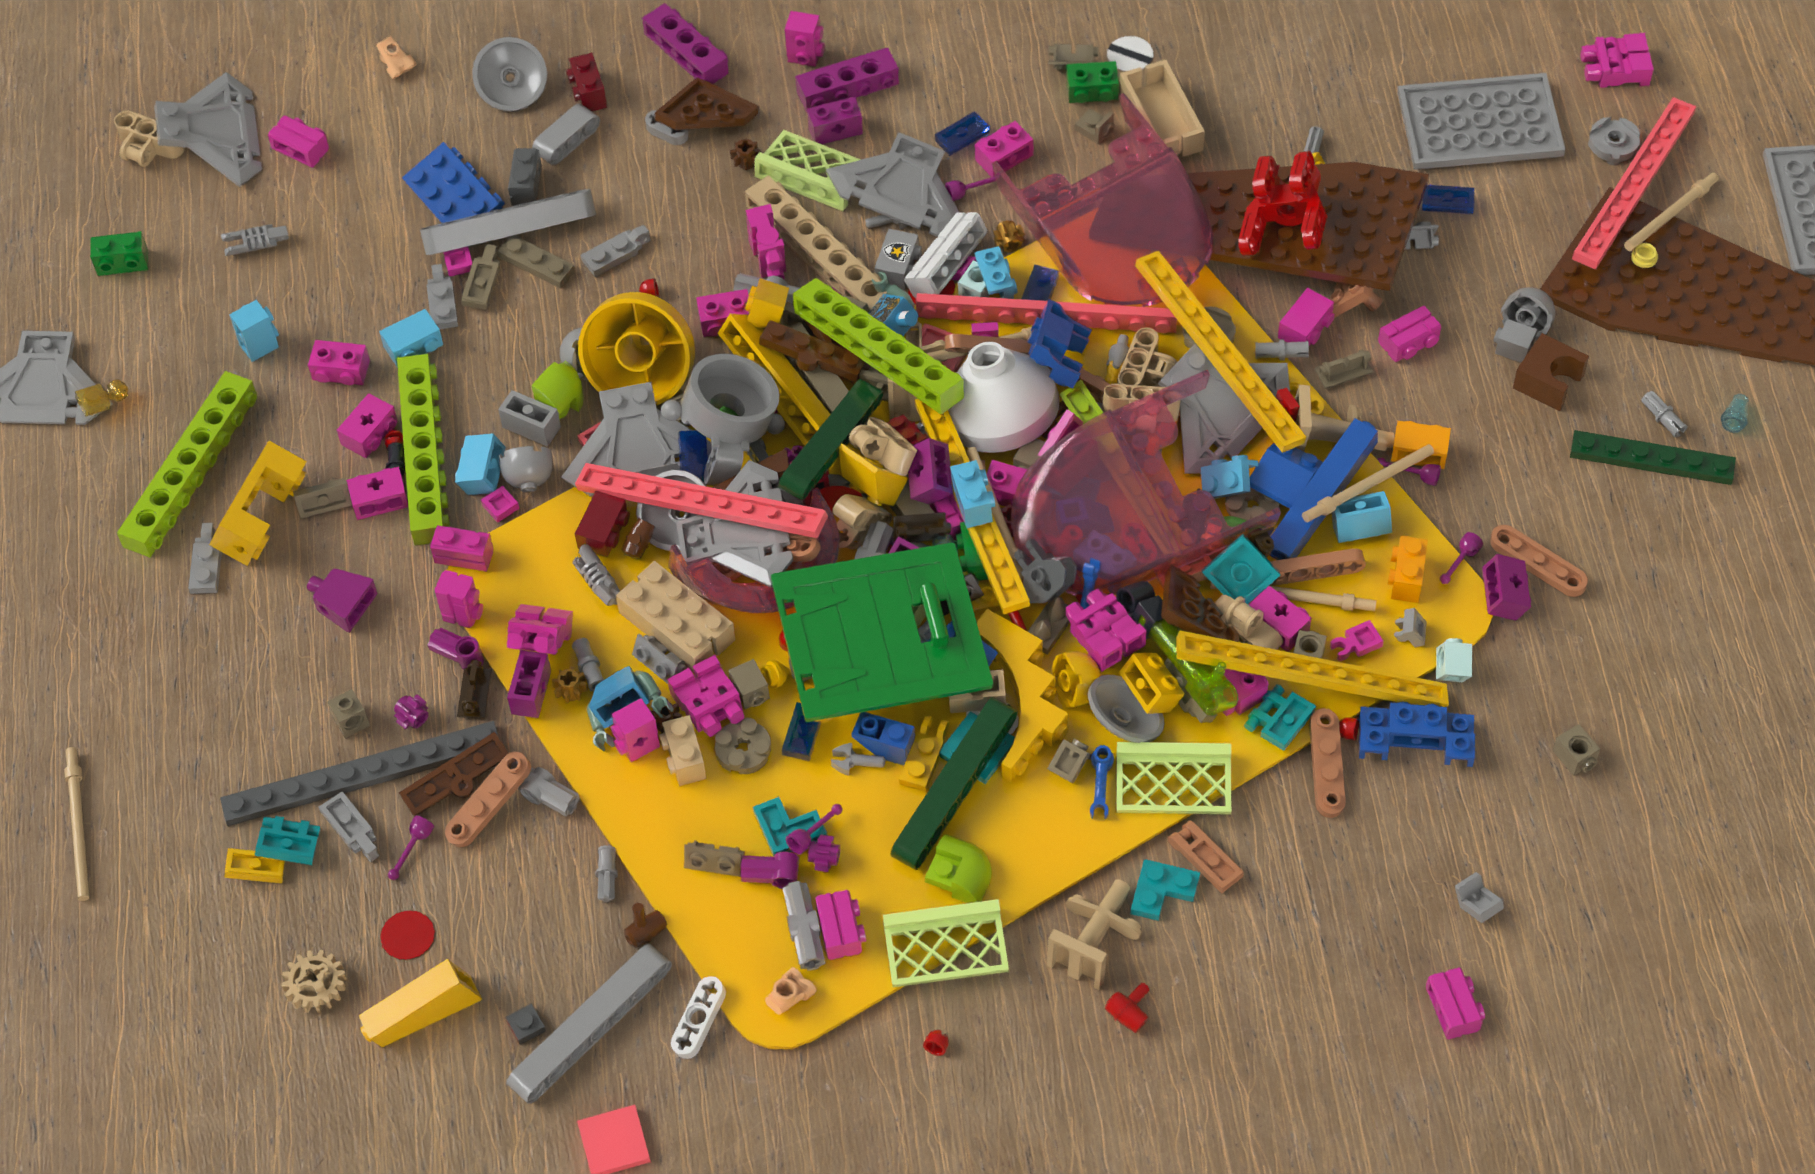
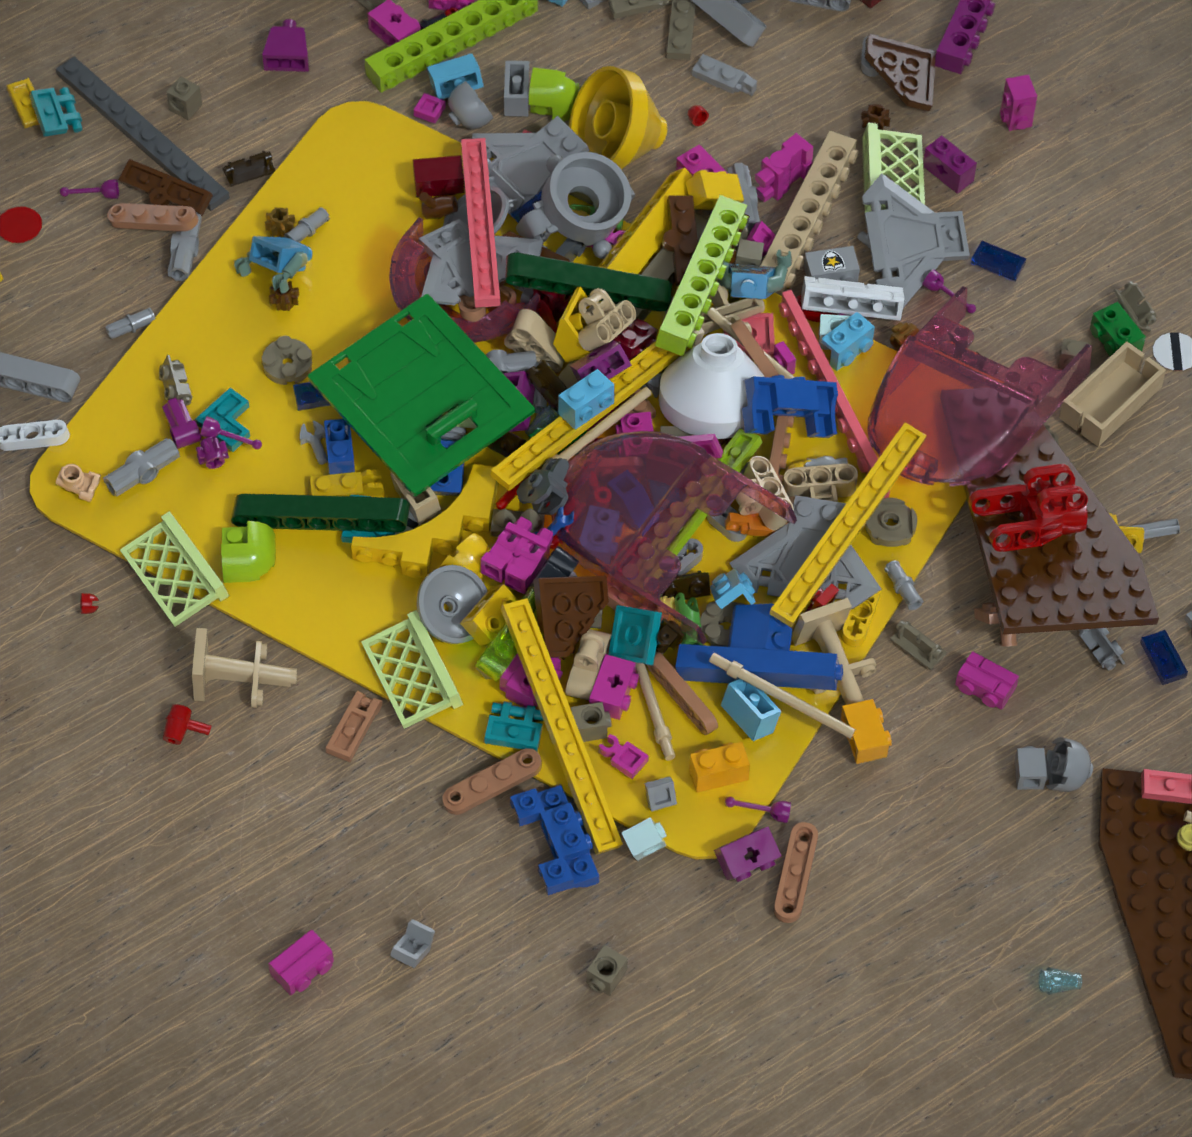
camera: 60 degrees right, 0 degrees up
(350, 825) = (90, 145): light grey hinge -> none
(411, 711) = (206, 136): magenta gear -> none
(455, 647) = (280, 139): magenta piece -> none
(458, 599) = (313, 113): dark pink brick -> none
(462, 548) = (366, 98): dark pink brick -> none
(529, 684) = (263, 193): magenta brick -> none
(539, 630) = (311, 175): dark pink hips -> none
(596, 575) = (390, 197): light grey hinge -> none
(635, 730) = (253, 277): dark pink brick -> none
(644, 926) = (90, 366): reddish brown piece -> none
(653, 656) = (333, 277): light grey hinge -> none
(675, 616) = (371, 262): tan piece -> none
(684, 750) = (258, 320): tan brick -> none
(707, 696) = (316, 314): dark pink hips -> none
(749, 684) = (342, 335): dark tan brick -> none
(839, 925) = (153, 490): dark pink brick -> none
(848, 79) = (1001, 155): magenta brick -> none
(1006, 146) = (999, 297): dark pink brick -> none
(1041, 284) = (860, 381): clear blue plate -> none
(1069, 759) = (391, 587): dark tan bracket -> none
(1101, 767) = (399, 610): blue brick -> none
(1160, 881) = (309, 700): teal plate -> none
(1306, 318) = (949, 592): dark pink brick -> none
(1349, 728) = (537, 782): red hinge -> none
(1428, 473) = (842, 752): magenta hinge -> none
(1542, 363) = (1011, 797): reddish brown piece -> none
(1653, 457) = (969, 930): dark green plate -> none
(1664, 413) = (1022, 920): light grey axle -> none

